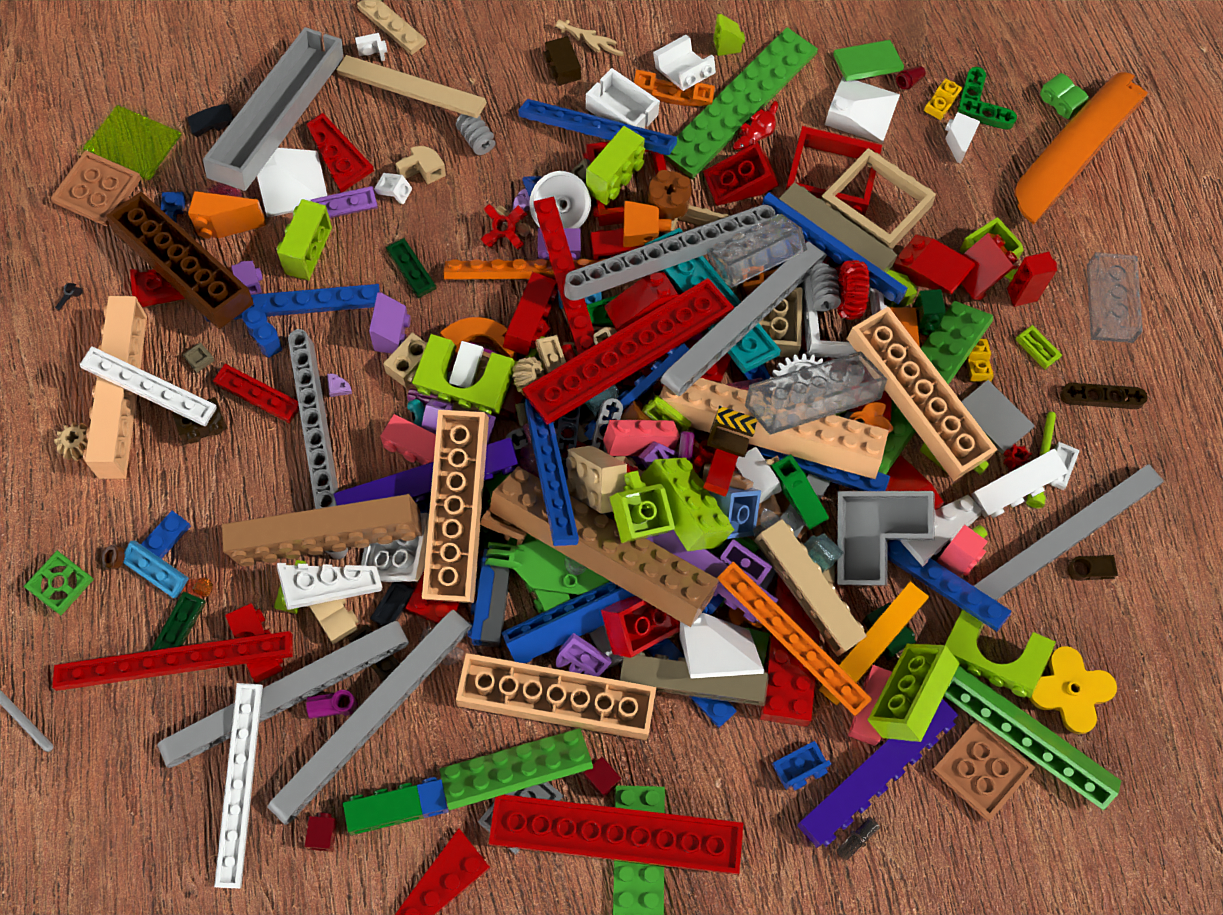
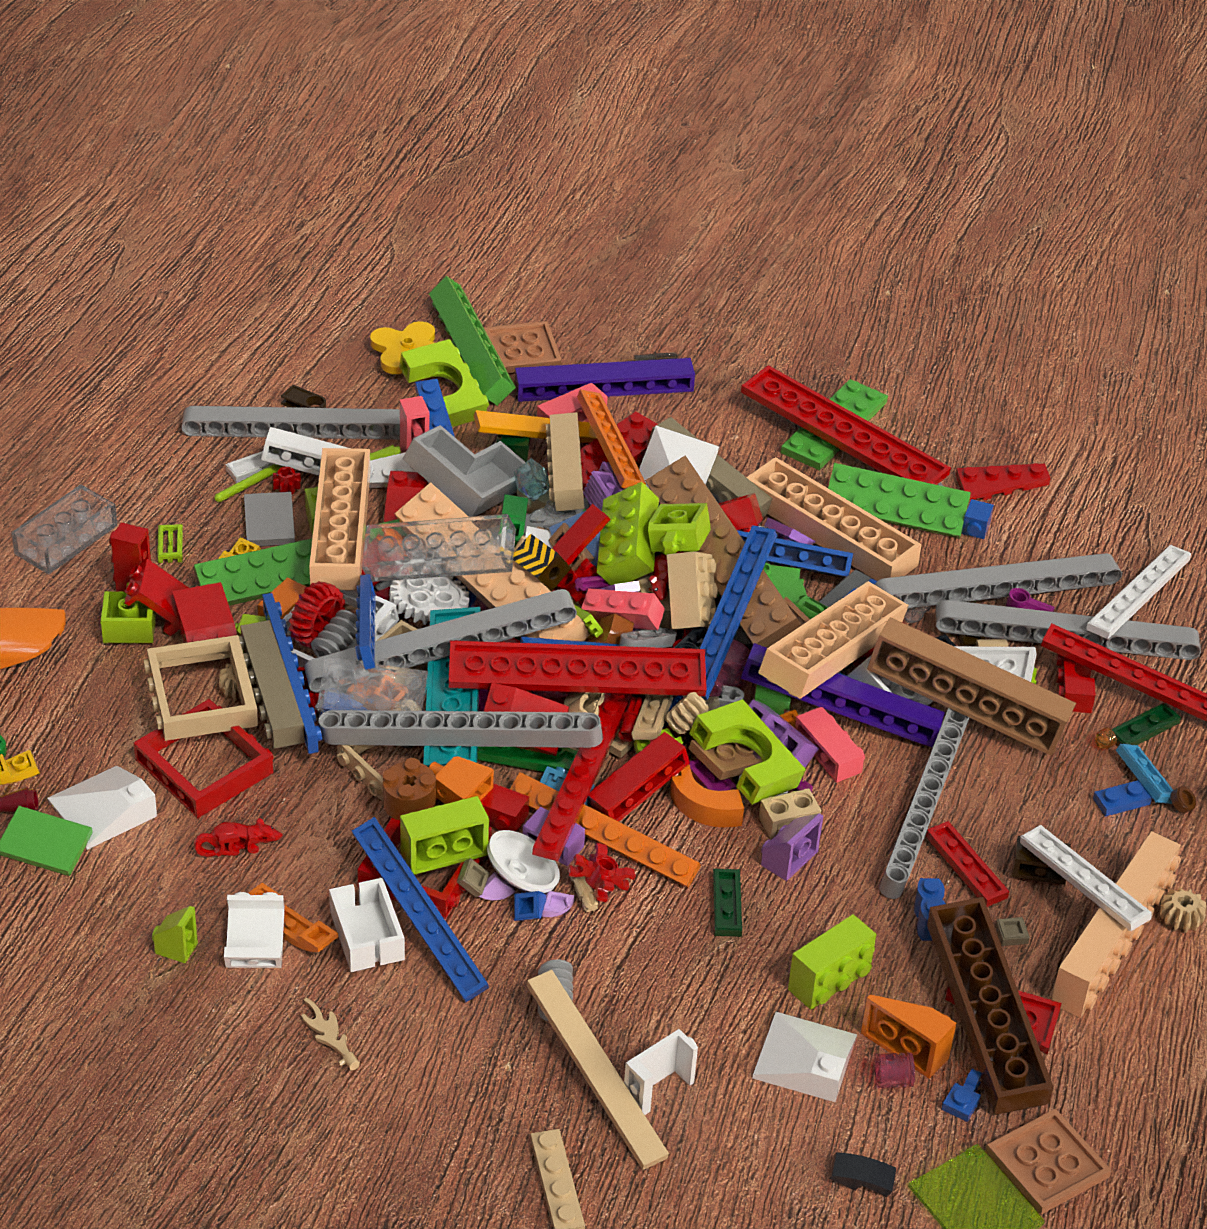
camera: 145 degrees left, 25 degrees down
(70, 290) = (1128, 1059): black hand -> none
(248, 275) = (918, 971): medium lavender brick -> none
(273, 109) = (780, 1101): light grey piece -> none
(315, 300) = (832, 912): blue plate -> none
(321, 832) = (1084, 539): dark red brick -> none
(338, 386) = (876, 836): lavender tile -> none
(339, 154) = (730, 1053): red wing -> none
(348, 202) = (759, 997): medium lavender tile -> none
(366, 119) = (668, 1055): none -> white panel
(371, 44) = (605, 1157): white bracket -> none
(382, 809) = (1023, 530): green brick -> none
(393, 185) = (693, 983): white bracket -> none
(418, 409) = (811, 768): teal arm -> none
(424, 161) = (639, 991): tan brick -> none
(466, 365) = (736, 760): white tile -> none
(562, 61) = (388, 1016): dark brown brick -> none
(602, 777) = (824, 465): dark red brick -> none
(740, 101) = (211, 879): bright green plate -> none
(741, 176) = (303, 800): red slope -> none
(801, 765) = (663, 403): blue bracket -> none
(803, 283) = (366, 622): none -> blue plate
(913, 692) = (543, 378): lime brick -> none
(929, 310) = (248, 591): dark green brick -> none
(960, 134) = (36, 721): white slope -> none
(1103, 395) = (179, 497): dark brown beam -> none

